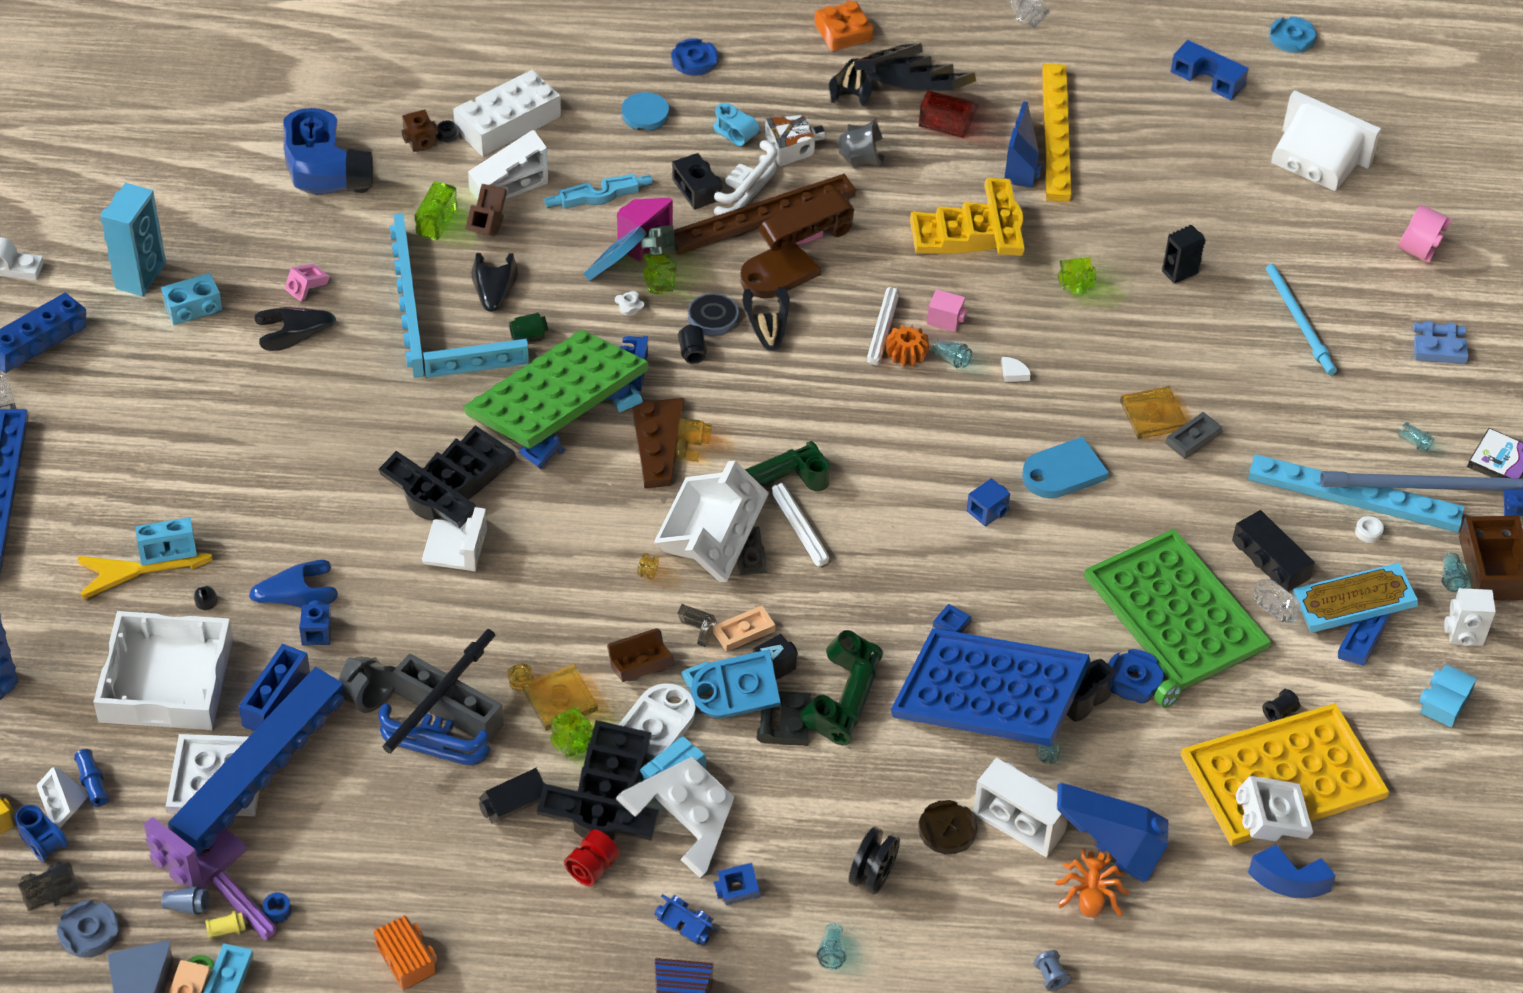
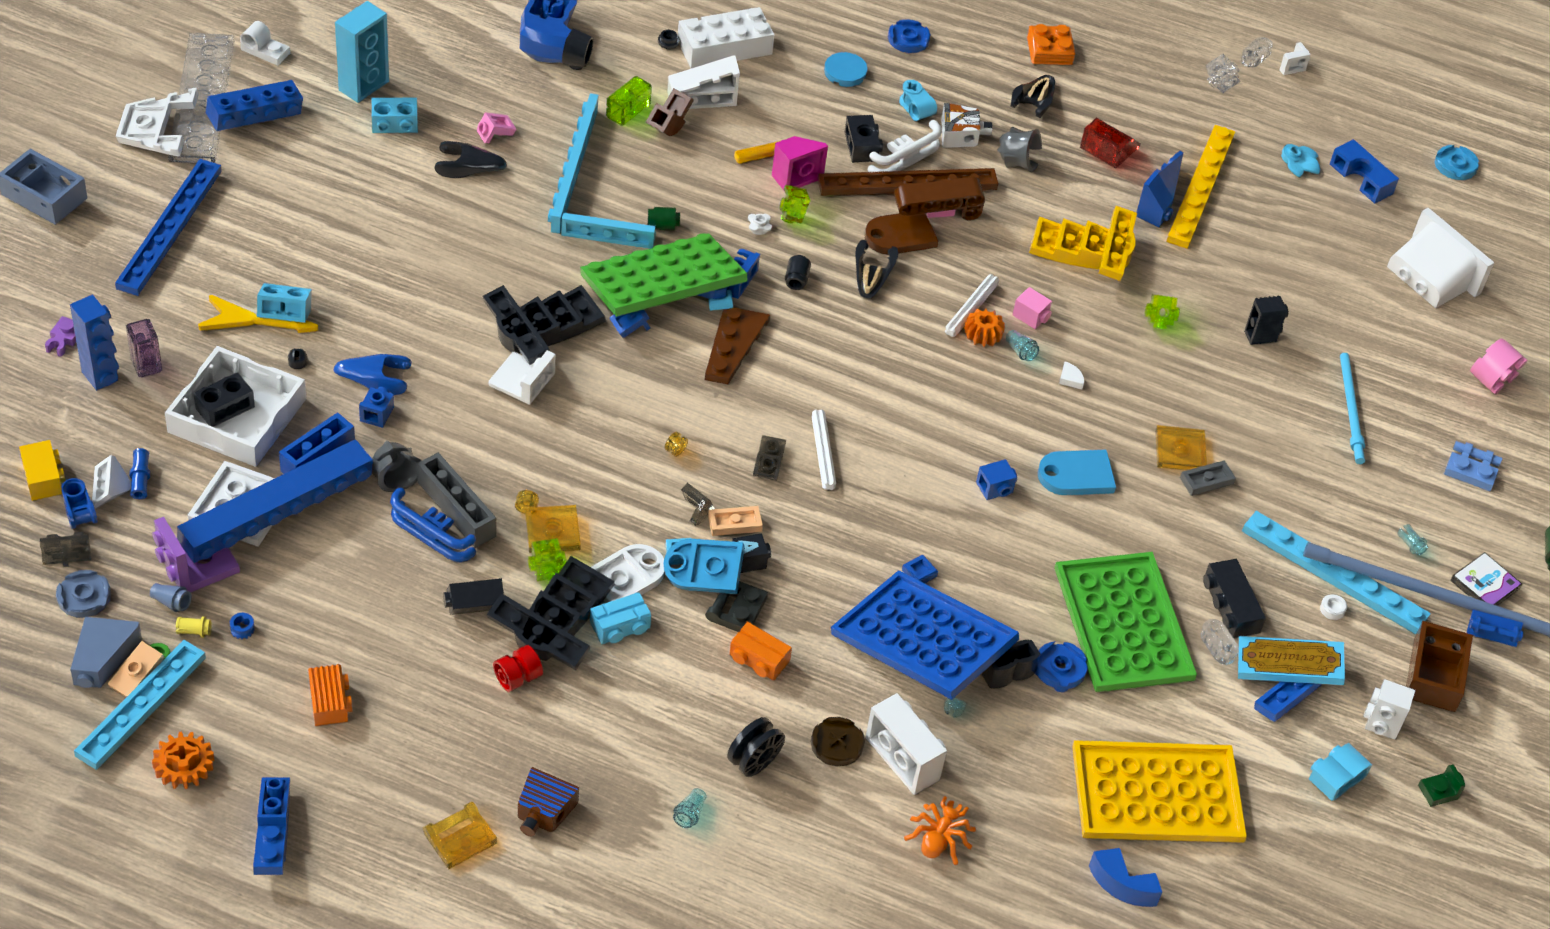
camera: 15 degrees right, 0 degrees up
(37, 638) = (144, 348): none -> clear purple brick
(148, 667) = (224, 399): none -> black brick
(244, 904) = (216, 615): medium lavender axle -> none
(419, 130) = (643, 31): reddish brown brick -> none
(471, 654) = (489, 468): black bar -> none
(493, 282) = (652, 173): black animal -> none
(587, 194) = (764, 124): medium azure piece -> none
(596, 225) = (755, 153): none -> yellow axle
(615, 252) = (762, 176): dark azure tile -> none
(639, 655) = (635, 515): reddish brown bracket -> none
(660, 240) = (804, 176): sand green hinge -> none
(676, 911) = (582, 753): blue hinge -> none
(691, 798) = (624, 646): white wing -> none
(692, 432) = (764, 345): clear yellow piece -> none
(713, 313) = (828, 253): tile -> none
(713, 519) = (746, 421): white windscreen -> none
(740, 874) = (626, 721): blue brick -> none
(805, 461) = (784, 404): dark green piece -> none
(831, 758) = (760, 651): none -> orange brick
(835, 718) = (806, 603): dark green piece -> none
(901, 69) = (1088, 96): black slope -> none
(1052, 970) = (873, 890): sand blue bush -> none
(1124, 829) = (987, 792): blue wedge -> none
(1141, 75) = (1300, 159): none -> medium azure plate
(1167, 693) = (1083, 689): bright green tile -> none
(1273, 809) = (1130, 817): white plate -> none
(1281, 706) = (1182, 732): black bush -> none
(1454, 573) = (1394, 667): clear light blue cone -> none

